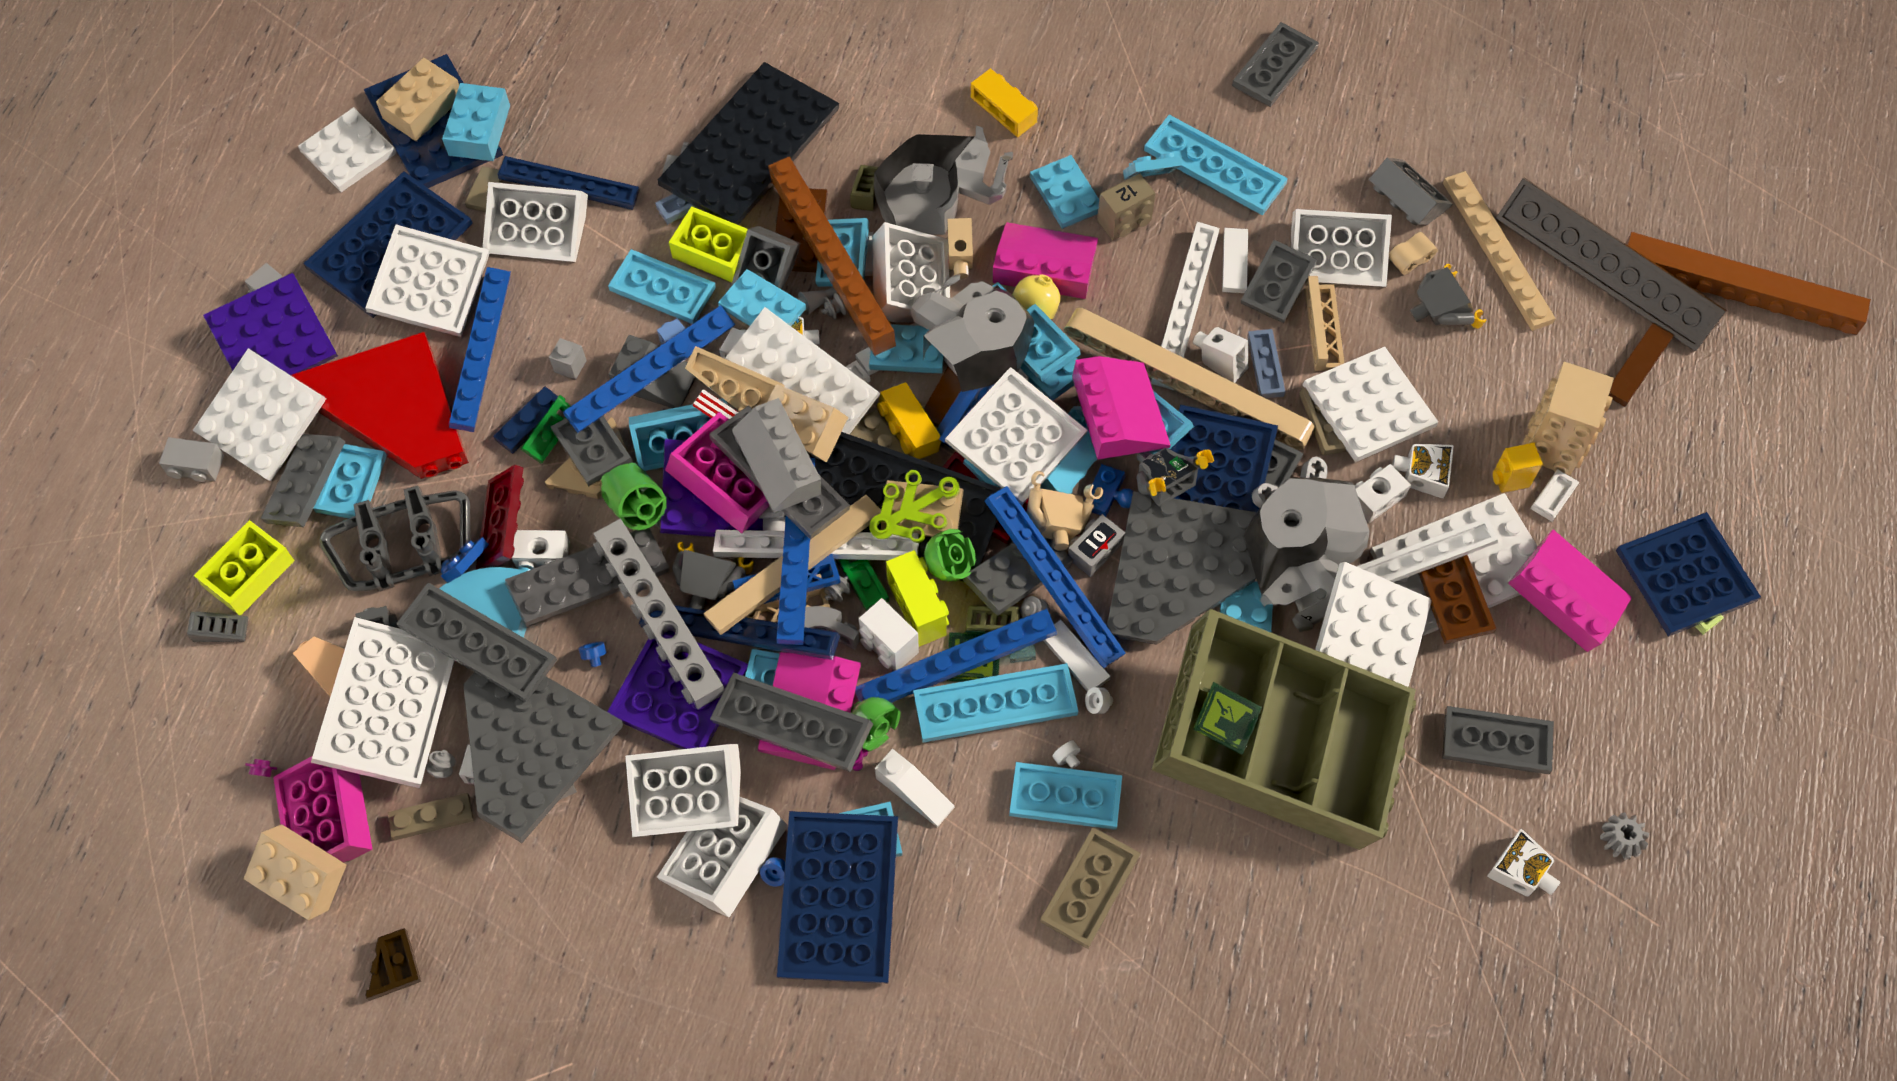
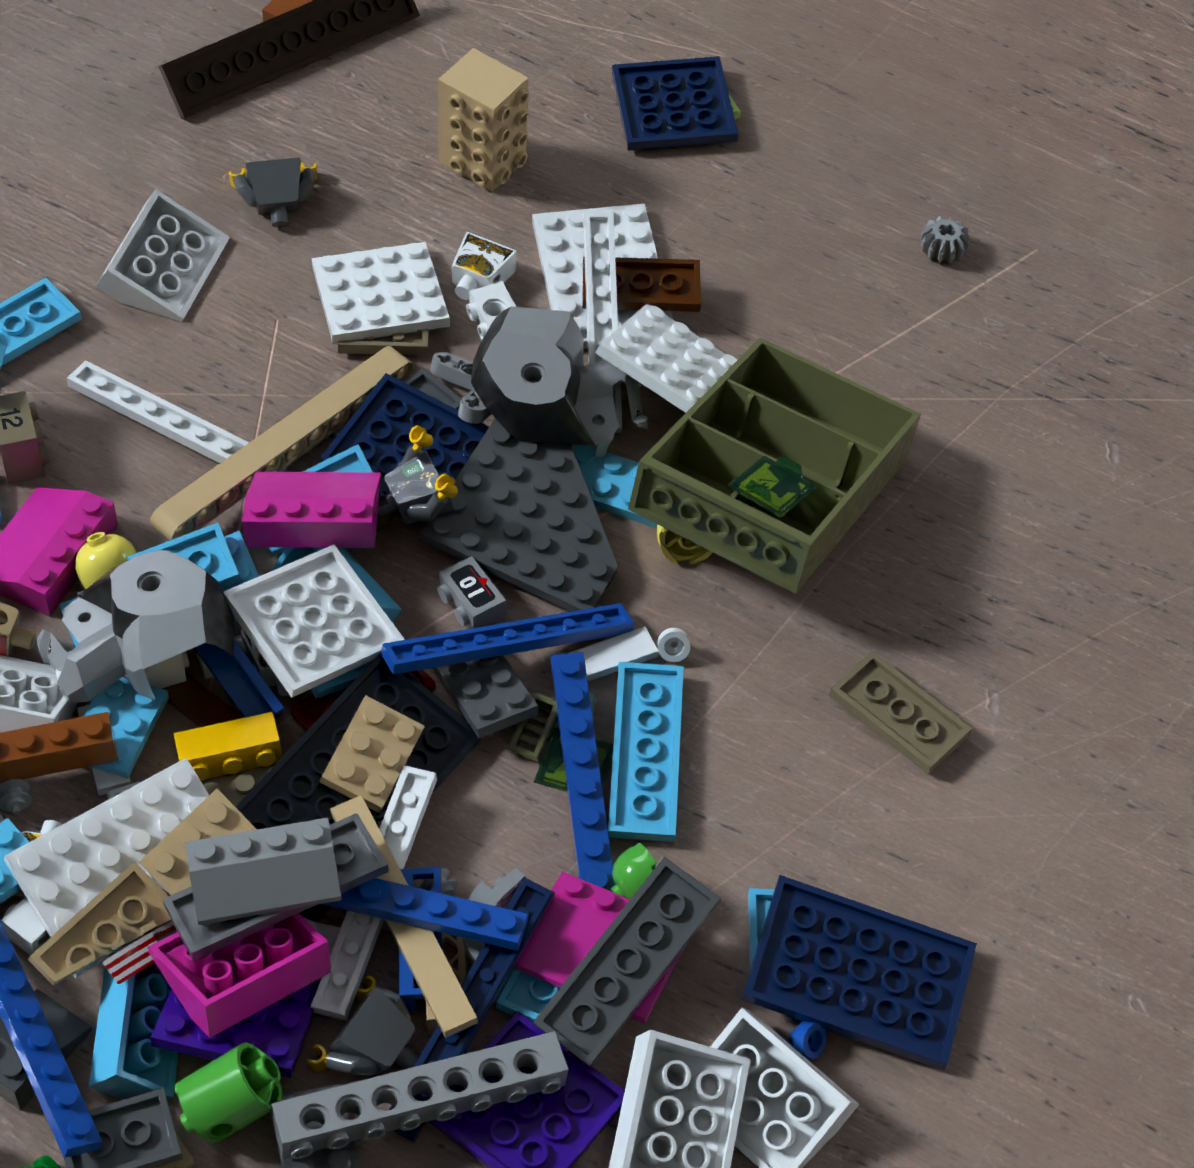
camera: 80 degrees left, 10 degrees down
(864, 582) = (445, 851): green plate -> none
(888, 635) = (532, 833): white brick -> none
(910, 510) = (376, 756): lime plant -> none
(913, 787) = (735, 861): white slope -> none
(917, 597) = (490, 791): neon yellow brick -> none
(949, 555) = (449, 738): bright green cylinder -> none
(1032, 605) = (538, 678): light grey wheel -> none
(1060, 514) = (421, 610): tan torso -> none
(1066, 795) = (782, 708): medium azure plate -> none
(1067, 754) = (733, 692): white tile -> none
(1110, 481) = (400, 571): blue plate -> none
(1223, 353) = (262, 400): white torso -> none
(1235, 260) = (133, 362): white tile -> none
(1266, 363) = (288, 370): sand blue plate -> none
(1278, 281) = (186, 324): dark grey plate -> none
(1318, 327) = (258, 306): tan fence -> none
(1409, 191) = (118, 177): dark grey slope -> none
(1412, 253) = (200, 197): tan axle -> none
(1498, 740) = (815, 306): dark grey plate -> none
(1499, 251) = (224, 129): tan plate -> none
(1517, 467) = (513, 187): yellow brick -> none
(1524, 866) = (958, 326): torso -> none
(1554, 495) = (547, 177): white tile -> none
(1571, 591) = (671, 194): dark pink slope -> none
(1639, 364) = (411, 58): reddish brown tile -> none

